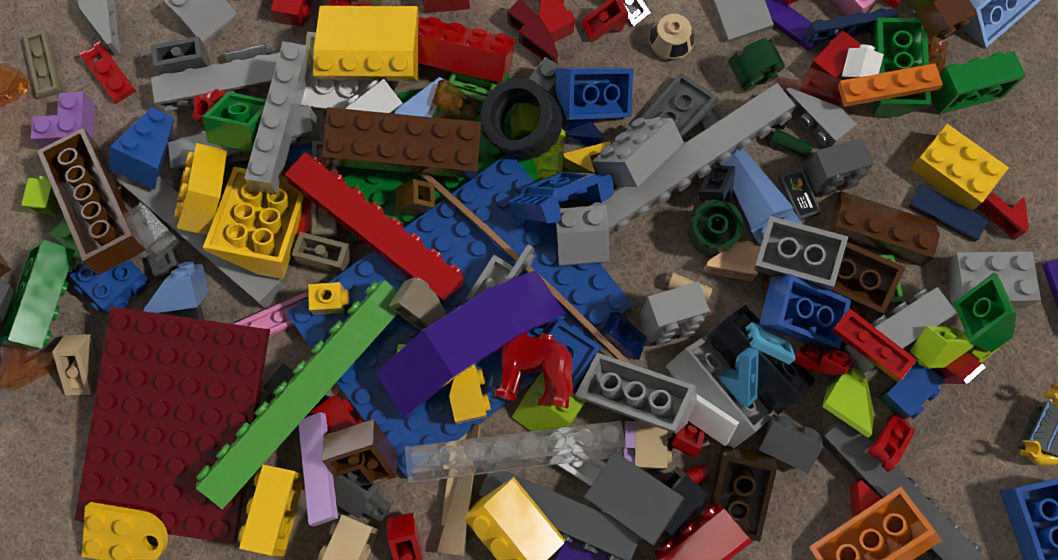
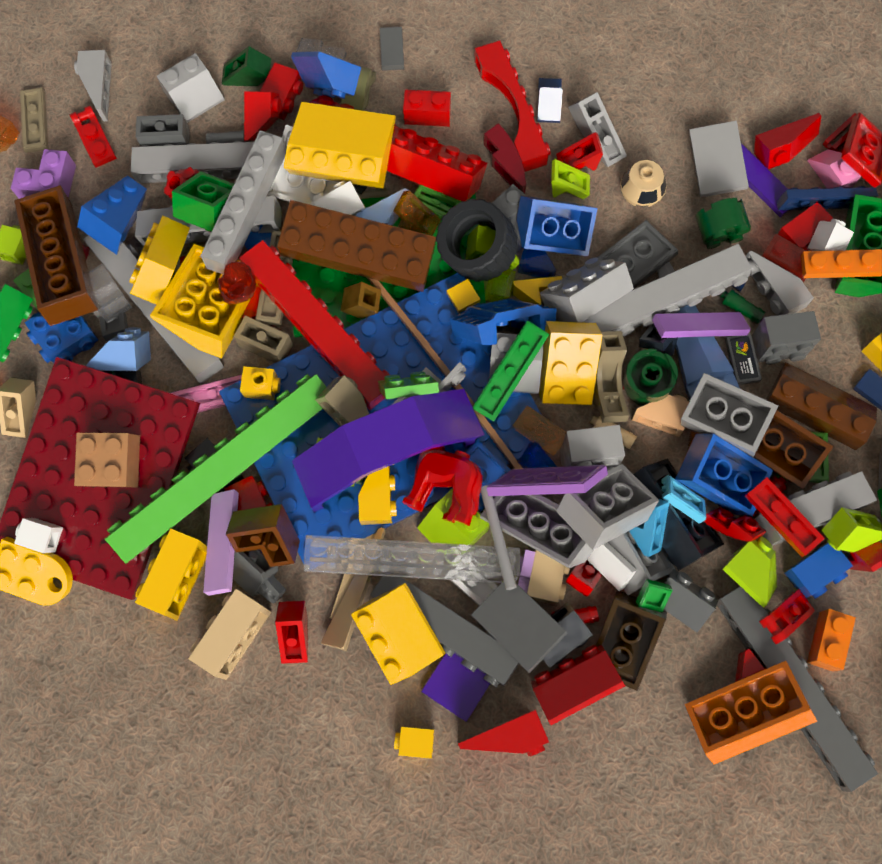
camera: 15 degrees right, 0 degrees up
(123, 495) = (38, 535): none -> white brick
(183, 405) = (107, 460): none -> medium nougat brick
(278, 23) = (260, 112): none -> red slope
(286, 200) = (237, 283): none -> clear red hair
(486, 276) = (415, 385): none -> bright green plate
(517, 176) = (463, 296): none -> yellow tile
(579, 244) = (510, 370): none -> green tile
(598, 415) = (498, 539): none -> light grey bar
(599, 44) = (570, 180): none -> lime slope
(618, 298) = (540, 430): none -> clear orange plate
(635, 226) = (570, 362): none -> yellow brick
(638, 349) = (548, 480): none -> medium lavender tile
(671, 233) = (608, 390): none -> dark tan arch
(701, 365) = (608, 508): none -> light grey brick
(754, 168) = (701, 324): none -> medium lavender tile
(760, 444) = (654, 595): none -> green tile
(937, 457) = (831, 640): none -> orange brick

